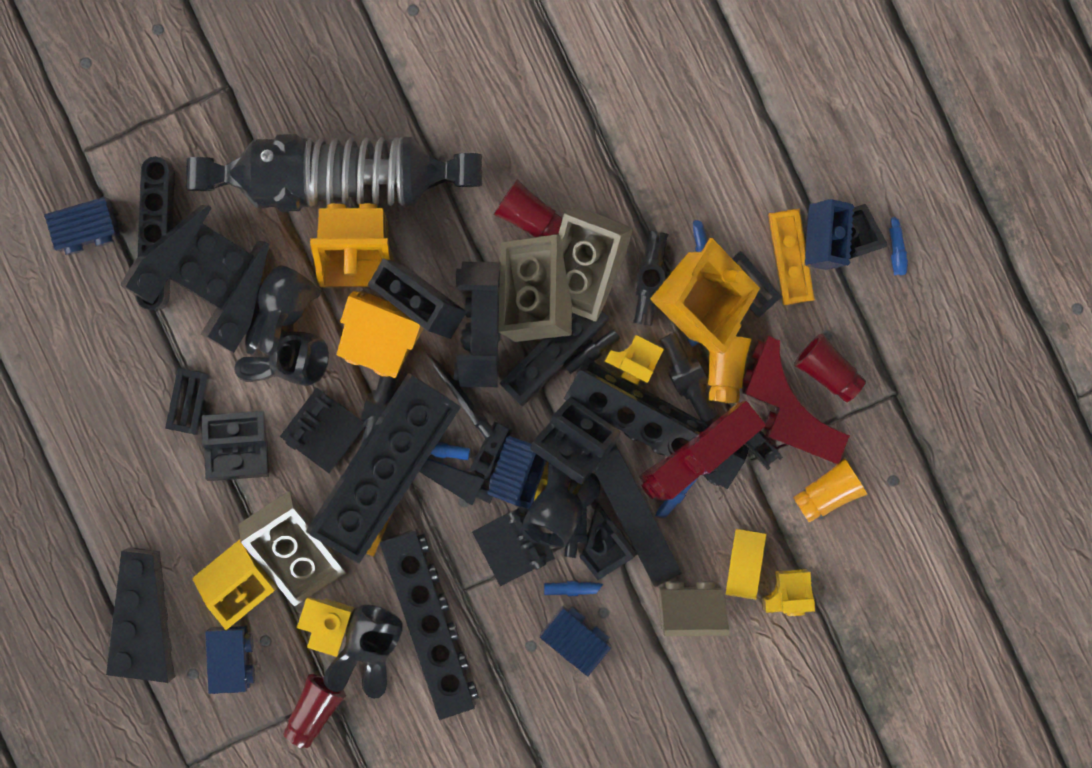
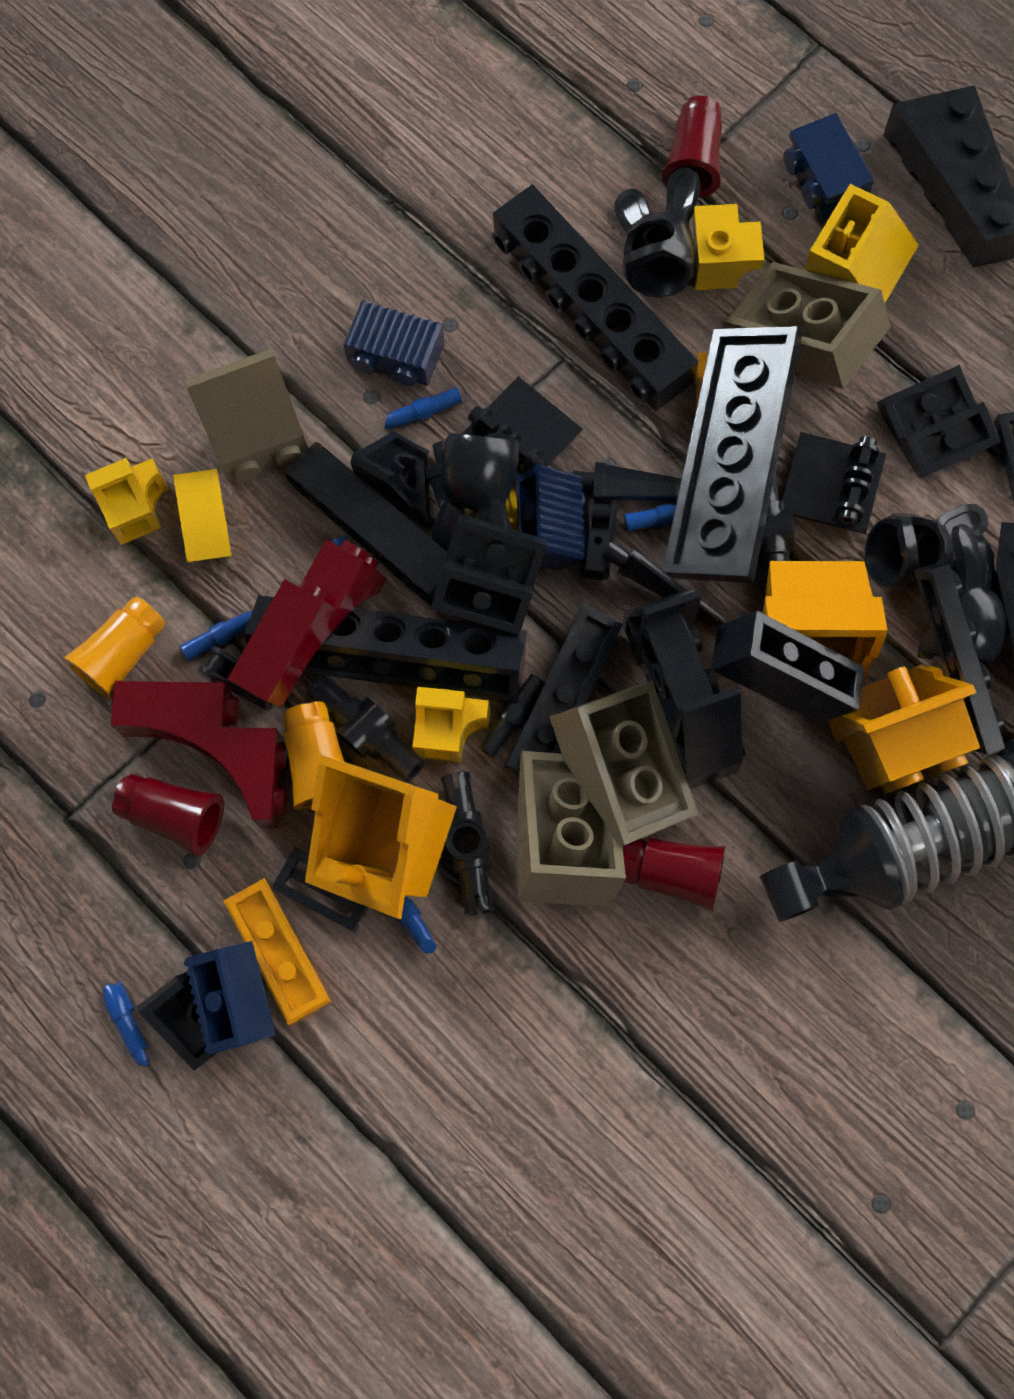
camera: 170 degrees right, 15 degrees down
(303, 281) = (955, 642): none -> black plate
(760, 478) = (216, 636): none -> blue piece

